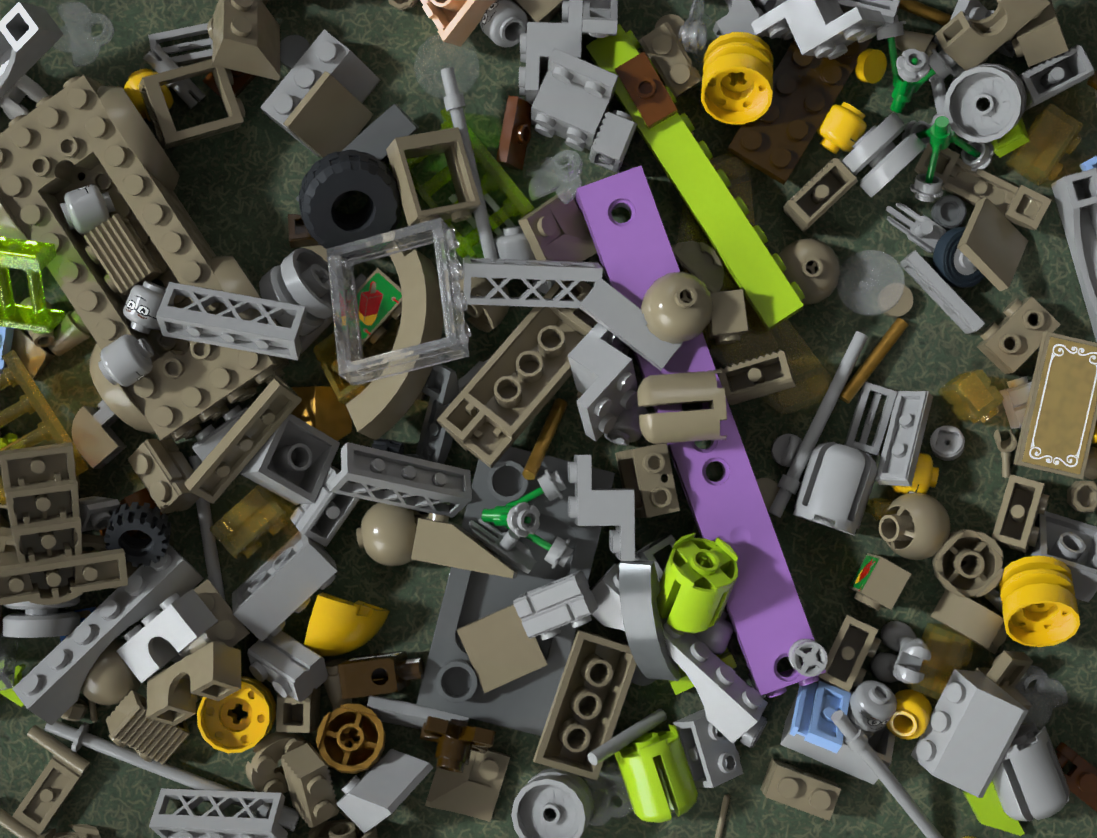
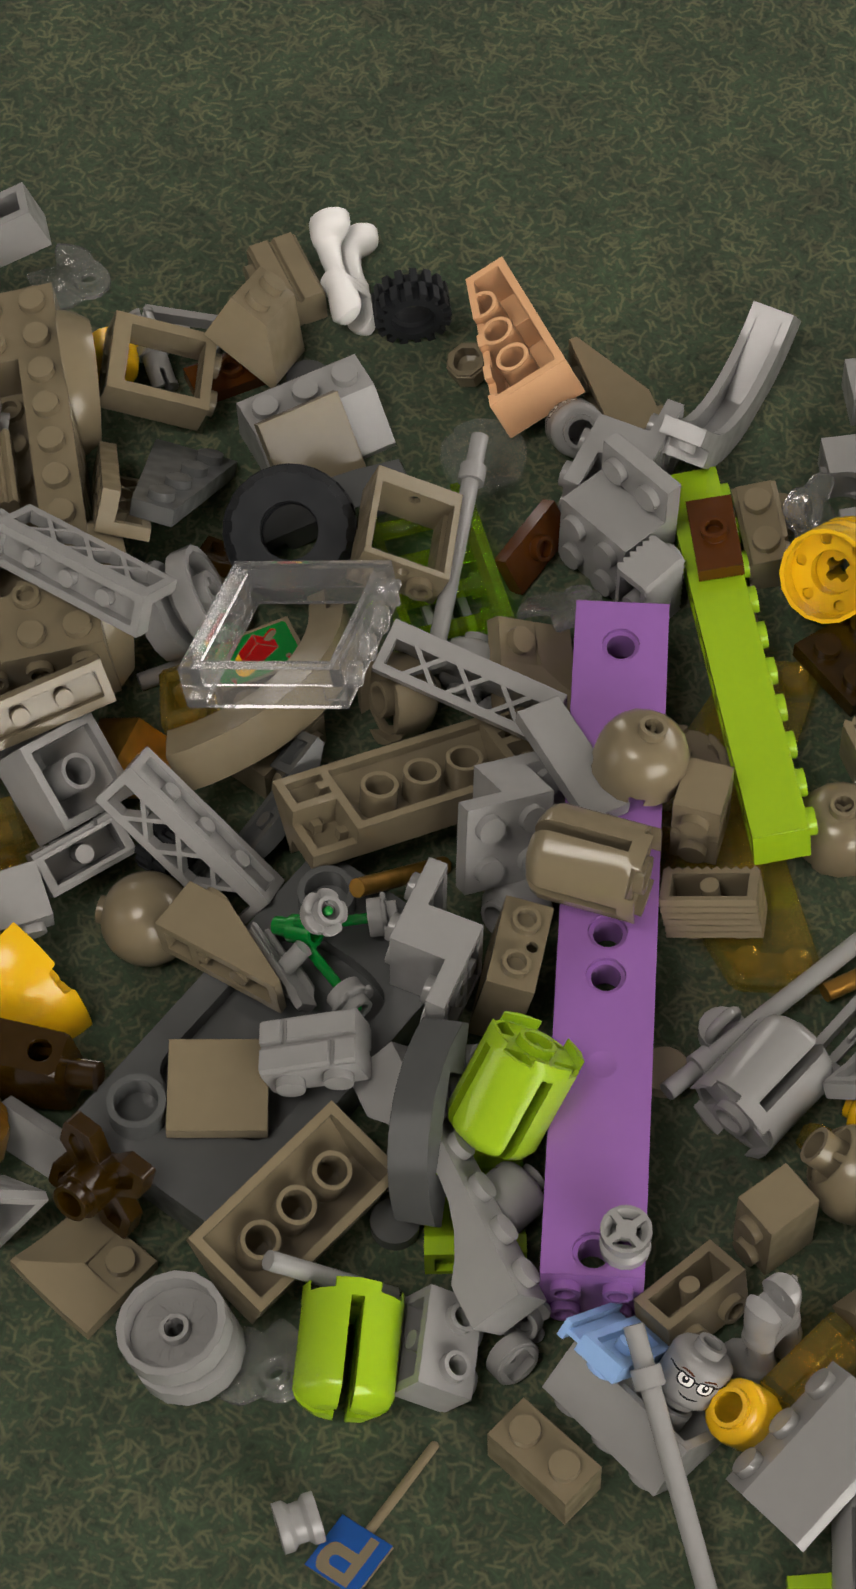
camera: 25 degrees right, 30 degrees down
(216, 235) = (113, 496): none -> dark tan fence
(251, 192) = (178, 481): none -> dark grey wing

